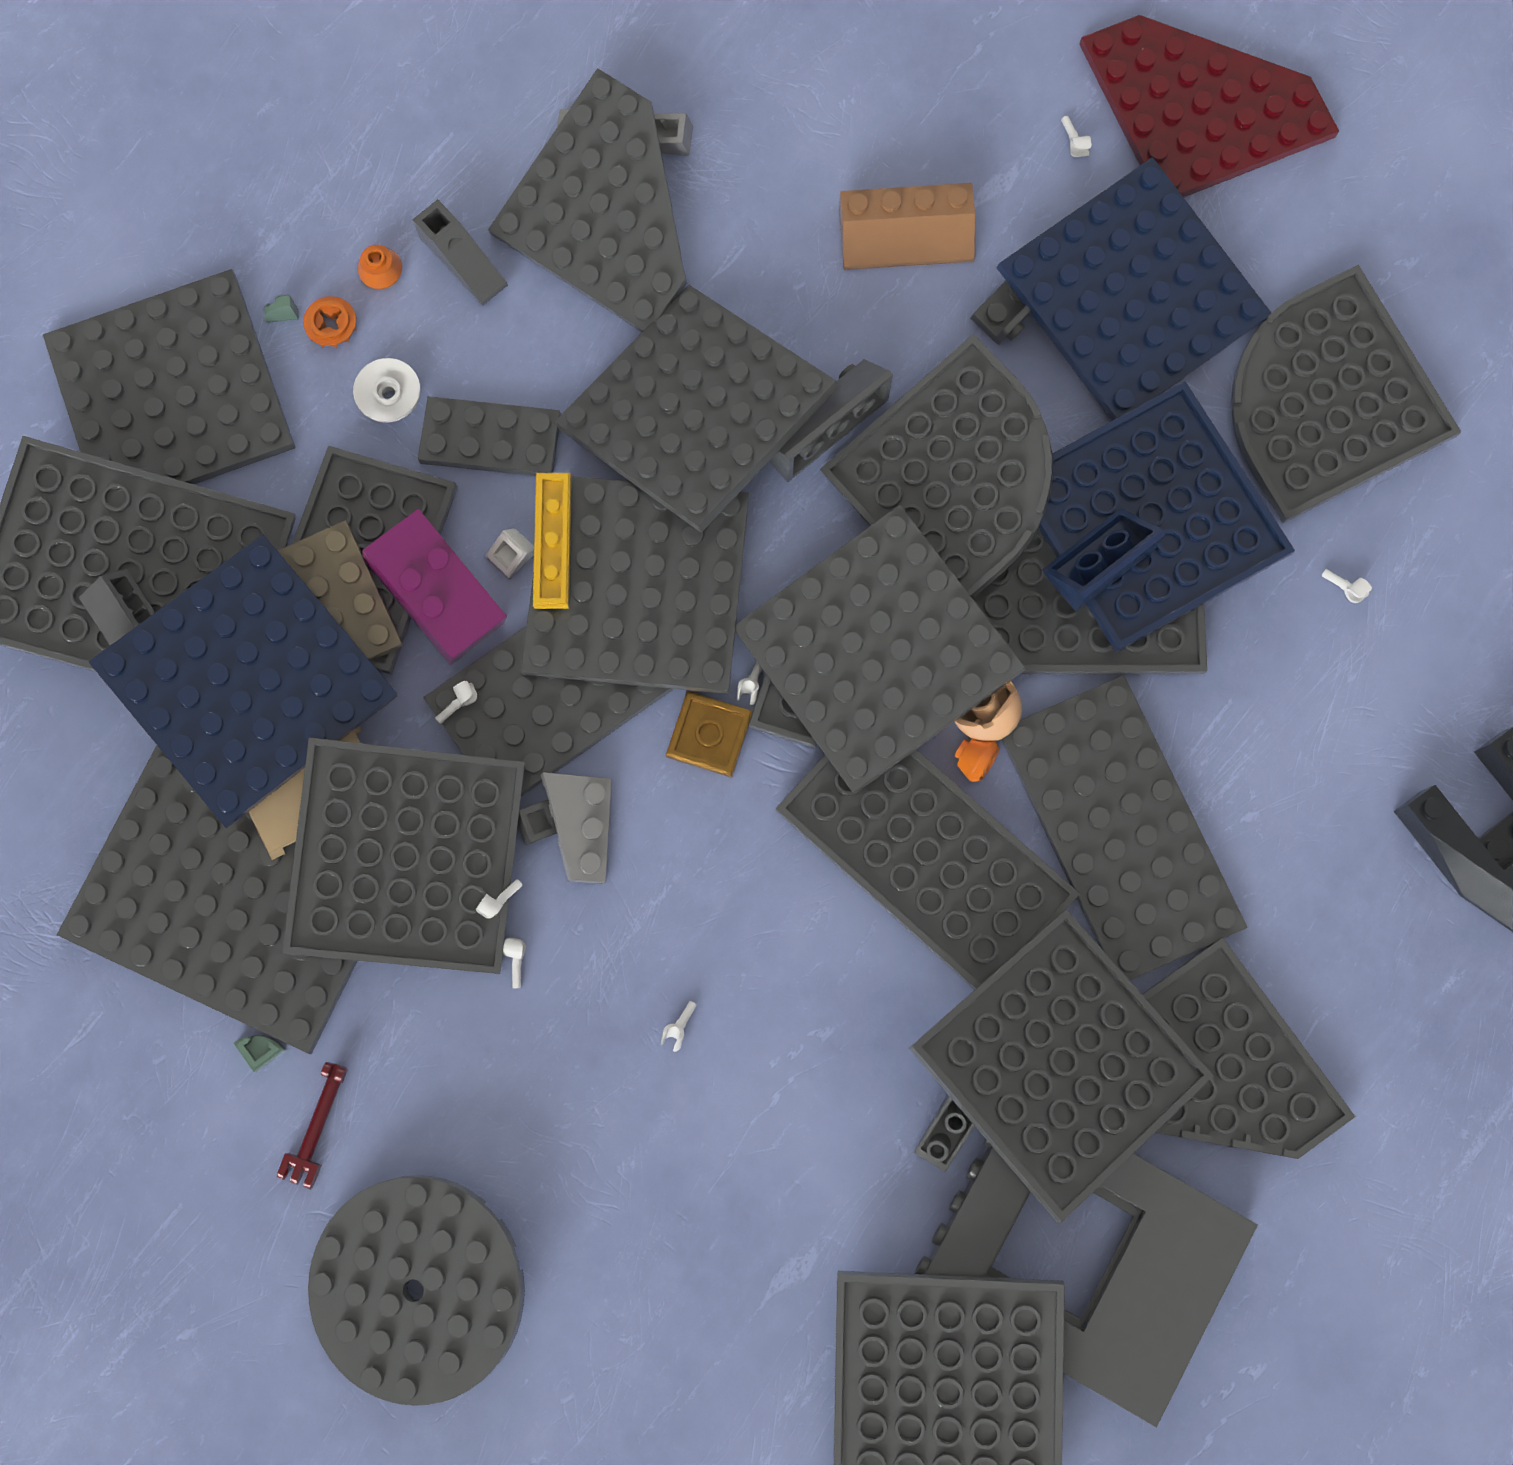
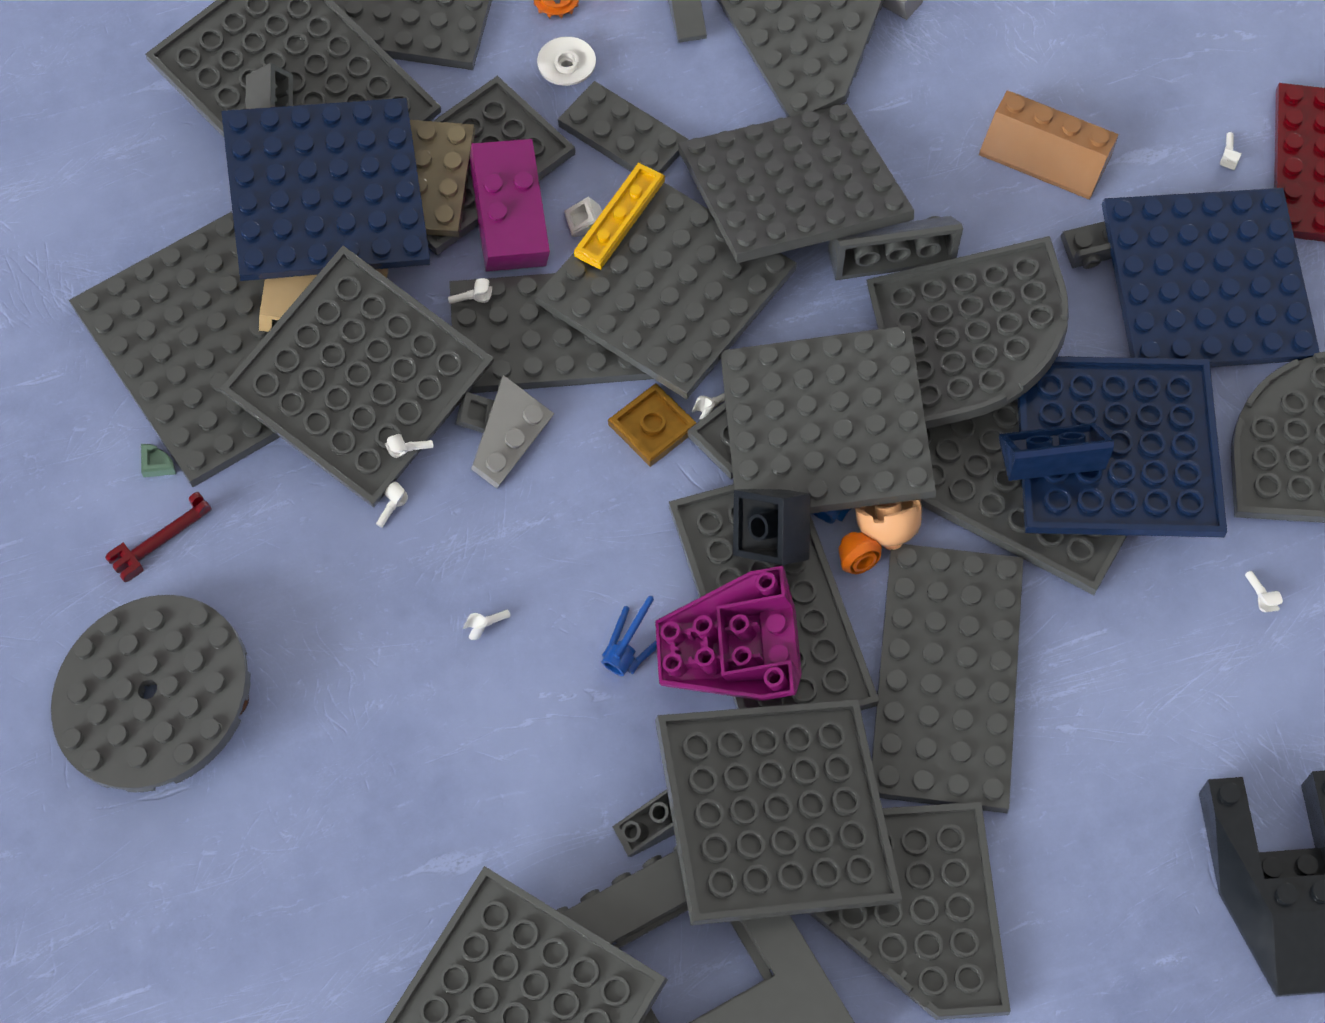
camera: 30 degrees right, 15 degrees down
(823, 988) = (619, 656): none -> blue plant
(894, 787) = (771, 525): none -> black slope
(925, 920) = (734, 640): none -> magenta wedge

